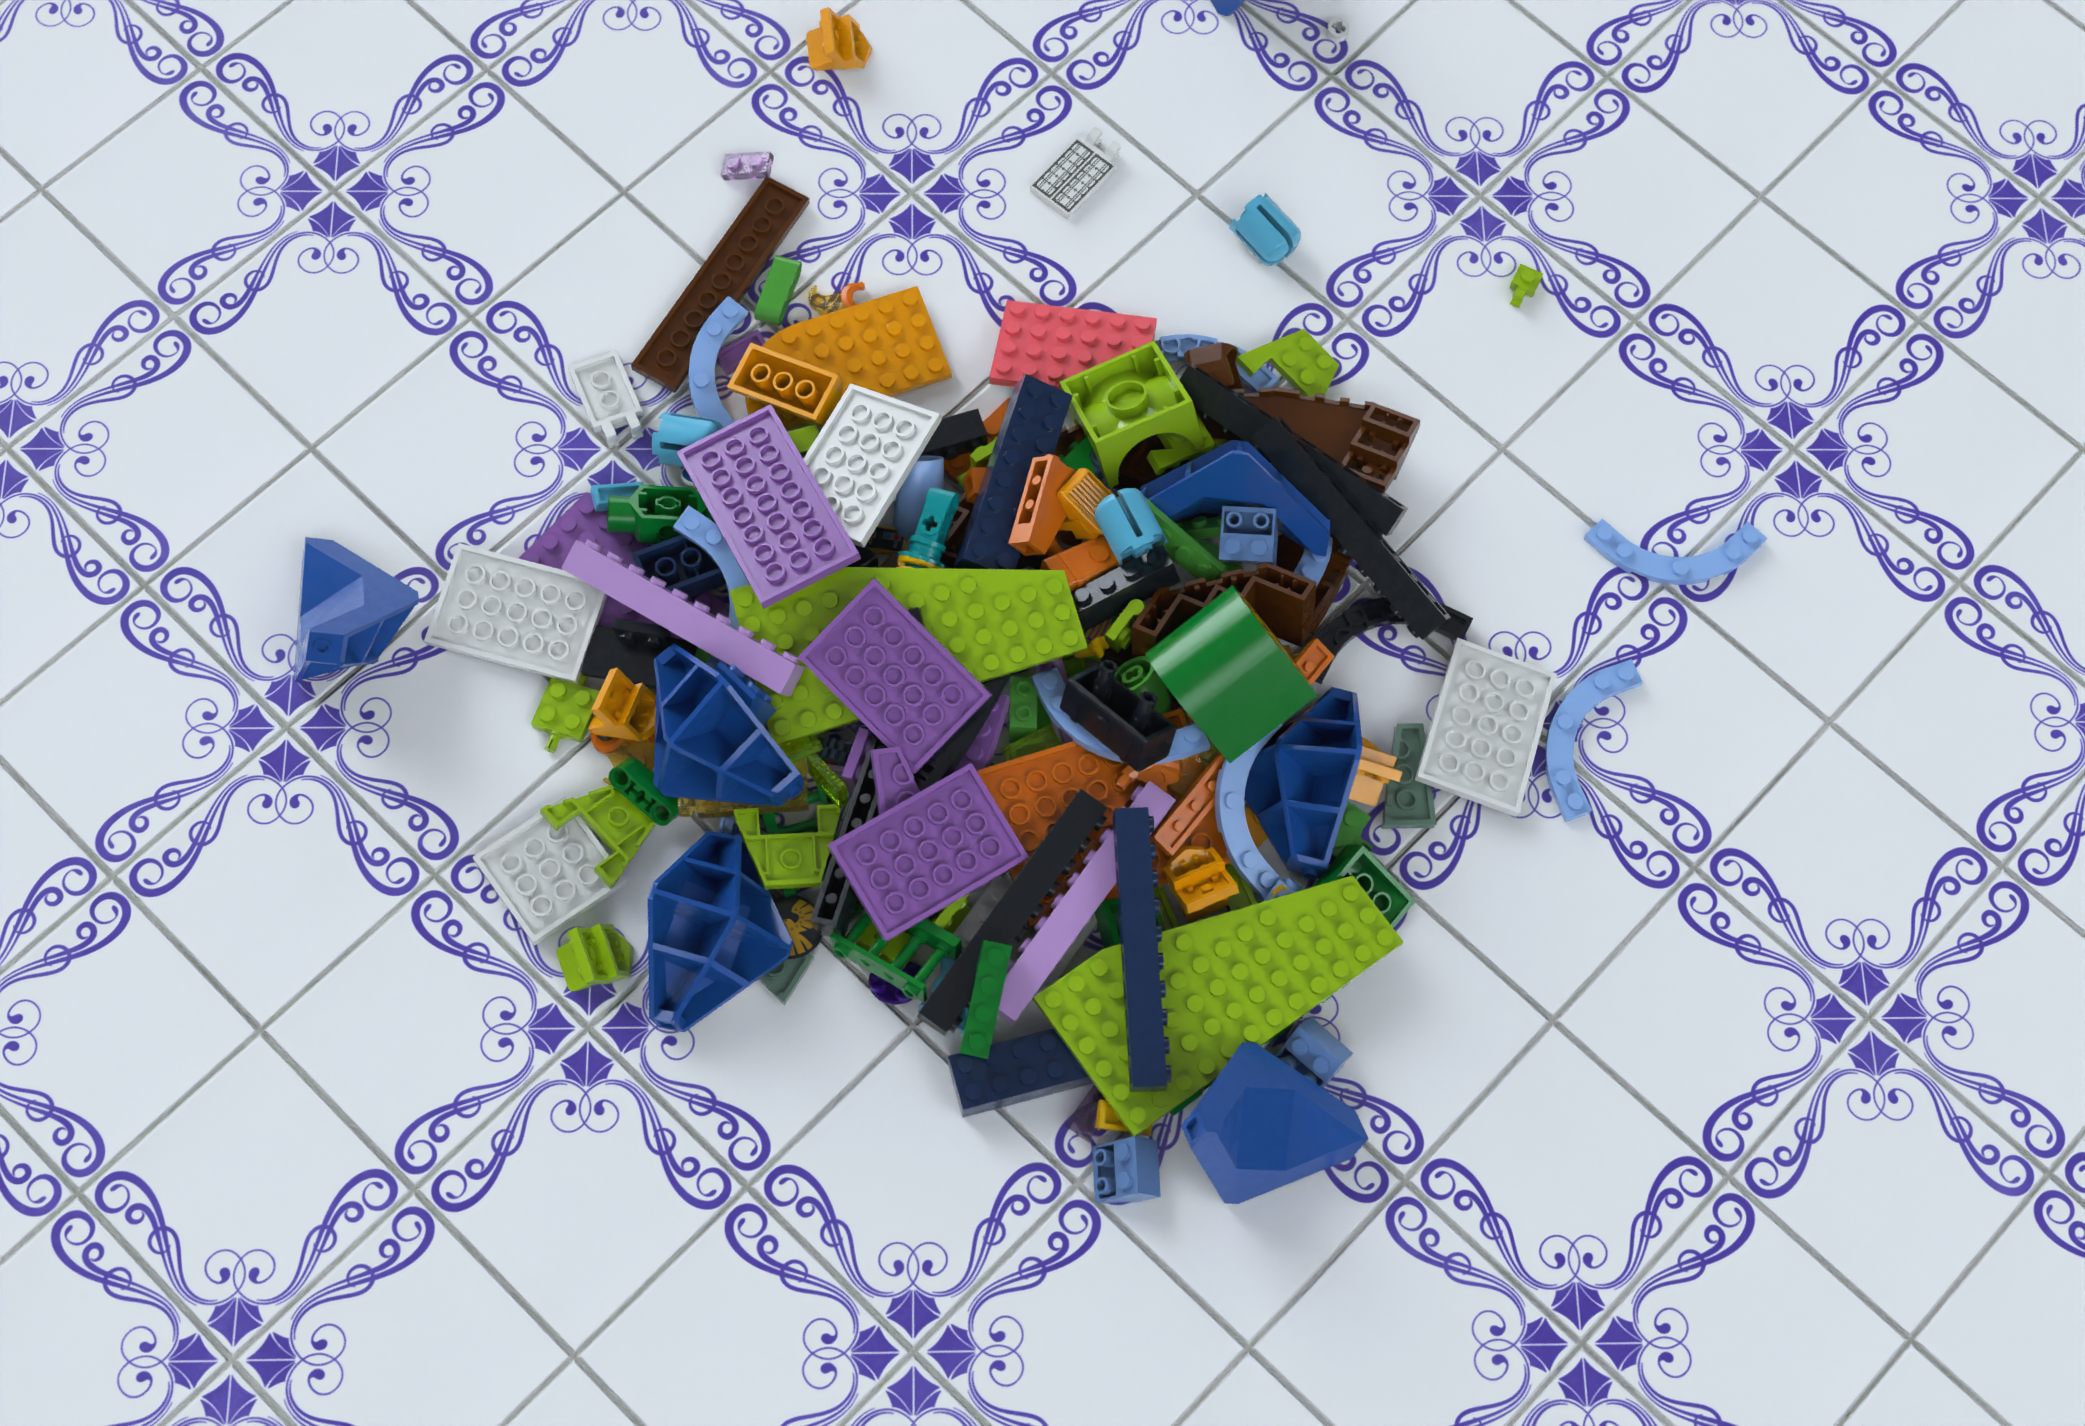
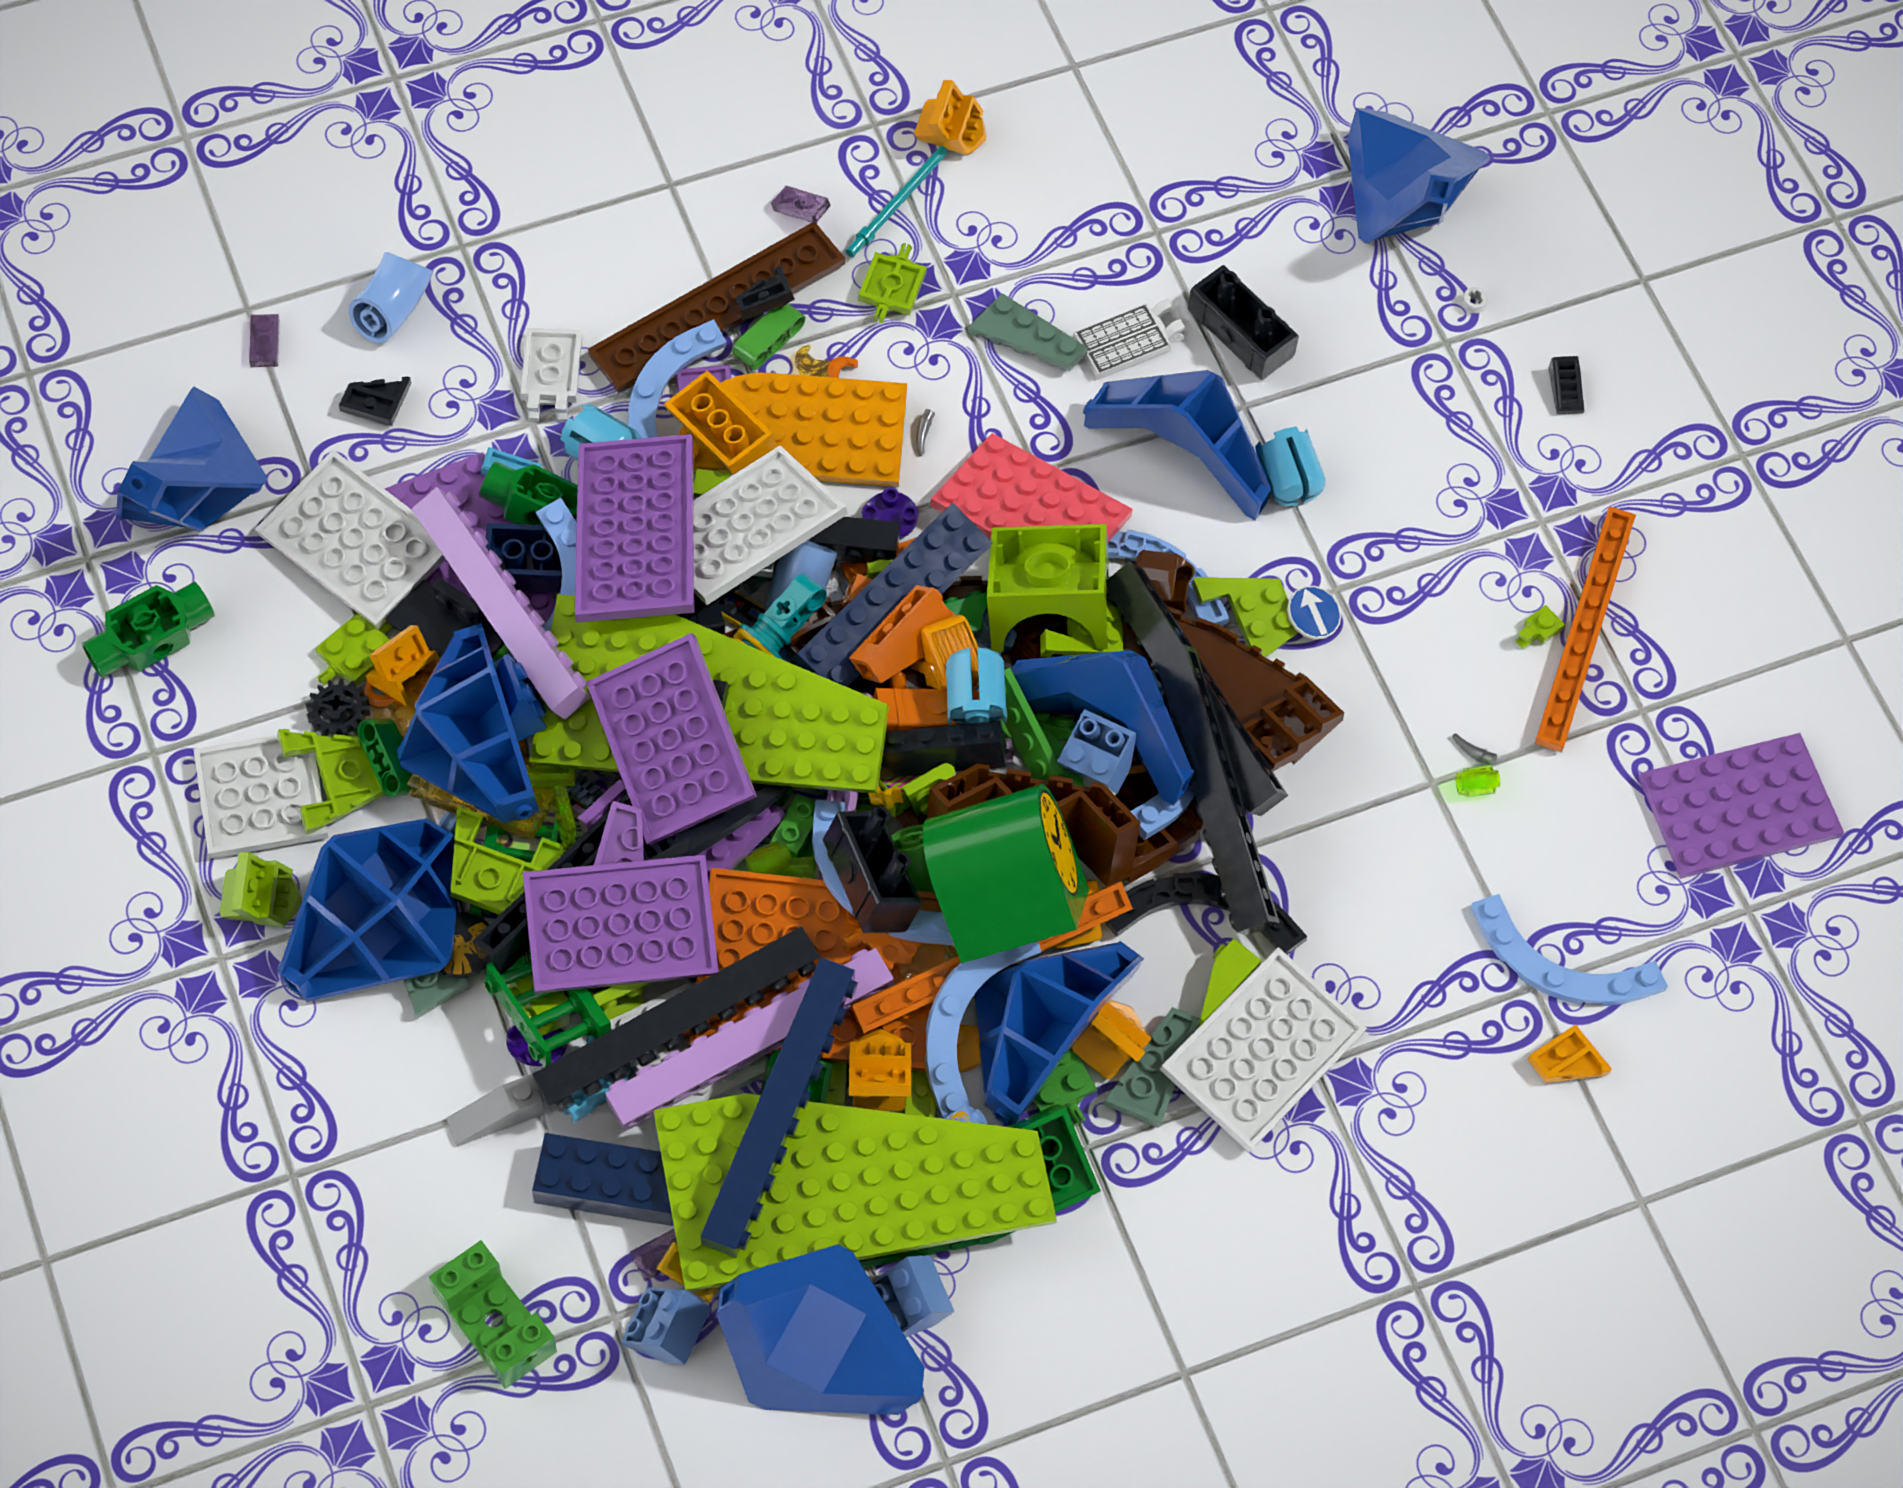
camera: 25 degrees right, 5 degrees down
(342, 470) = (264, 340): none -> clear purple plate
(376, 768) = (147, 628): none -> green brick
(436, 389) = (388, 297): none -> light blue brick
(469, 483) = (375, 399): none -> black wing
(568, 772) = (337, 708): none -> black gear
(761, 256) = (765, 295): none -> black wing
(815, 169) = (867, 234): none -> teal bar
(858, 204) = (892, 283): none -> lime plate
(893, 1054) = (496, 1111): none -> light grey slope
(946, 318) = (922, 429): none -> flat silver helmet
(956, 1212) = (471, 1291): none -> bright green plate
(957, 398) = (893, 507): none -> dark purple dish
(983, 200) = (1018, 327): none -> sand green wing
(985, 999) = (591, 1099): green arch -> none
(1018, 742) = (769, 859): none -> clear neon green brick
(1165, 122) = (1242, 322): none -> black piece
(1168, 217) = (1195, 415): none -> blue panel
(1344, 345) = (1314, 612): none -> blue piece
(1426, 680) = (1230, 969): none -> lime slope
(1442, 58) = (1564, 368): none -> black slope
(1527, 409) = (1475, 752): none -> flat silver helmet
(1540, 432) = (1477, 781): none -> clear neon green brick
(1561, 271) = (1585, 629): none -> orange plate
(1564, 727) = (1354, 1082): light blue plate -> none
(1722, 629) = (1568, 1058): none -> light orange wing
(1748, 366) = (1740, 805): none -> medium lavender plate

